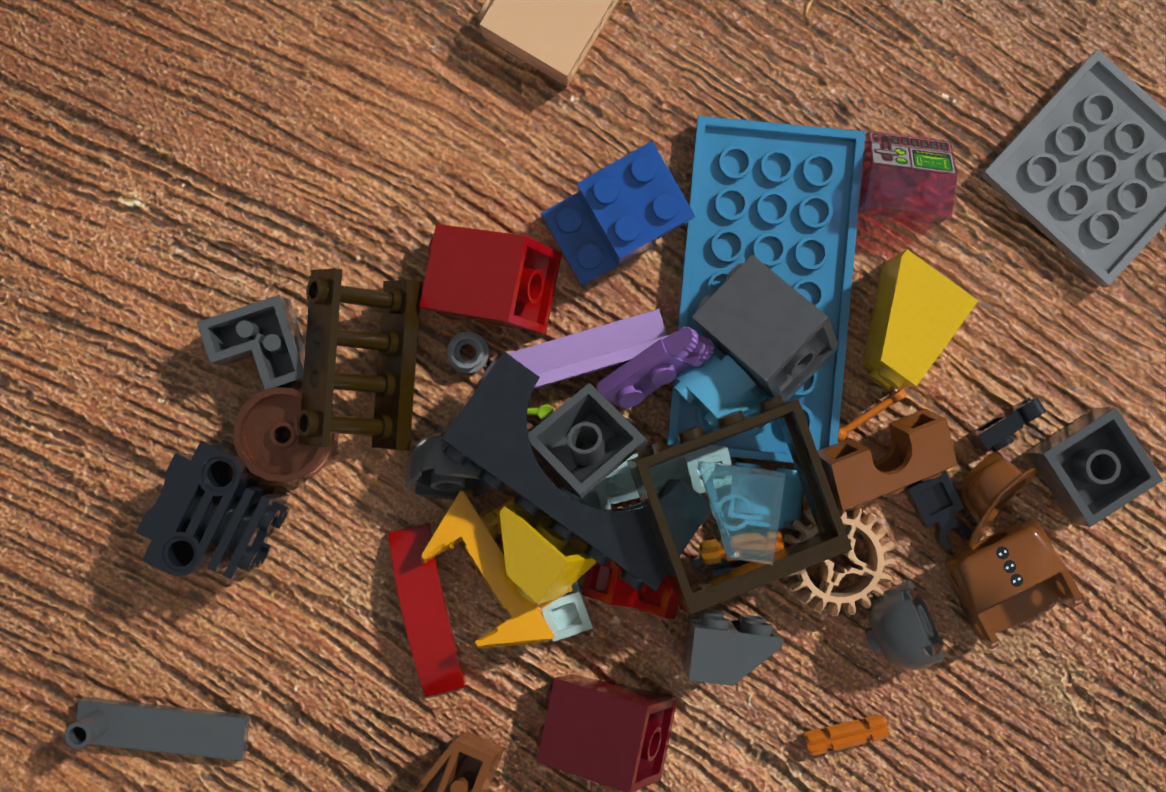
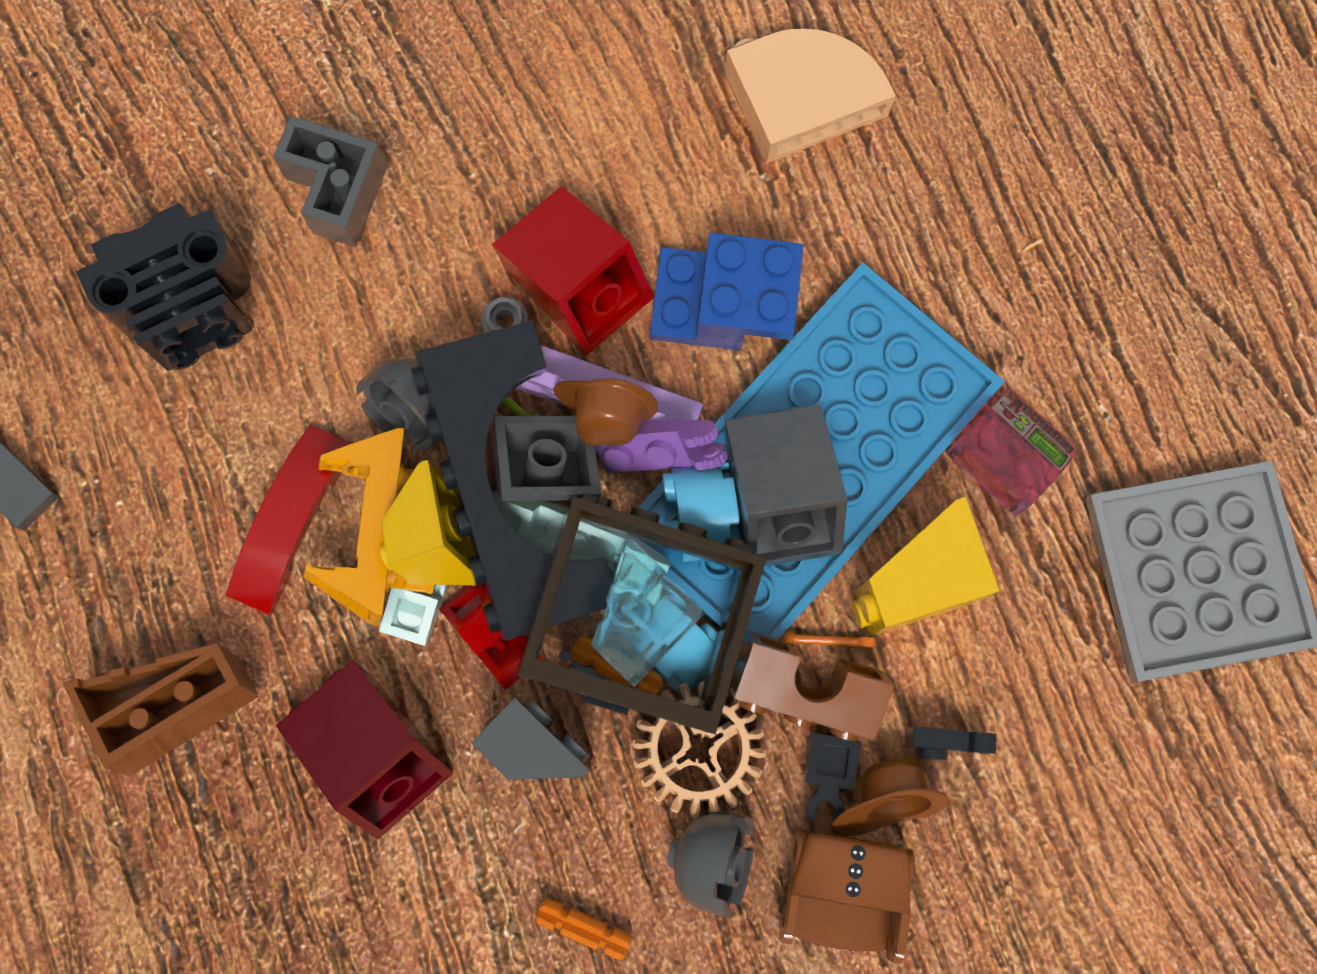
camera: 30 degrees right, 10 degrees down
(261, 442) = (290, 268): copper wheel -> none
(395, 365) = (445, 264): dark brown fence -> none
(606, 376) = (607, 409): none -> dark orange piece
(1094, 466) = (1006, 840): dark grey brick -> none

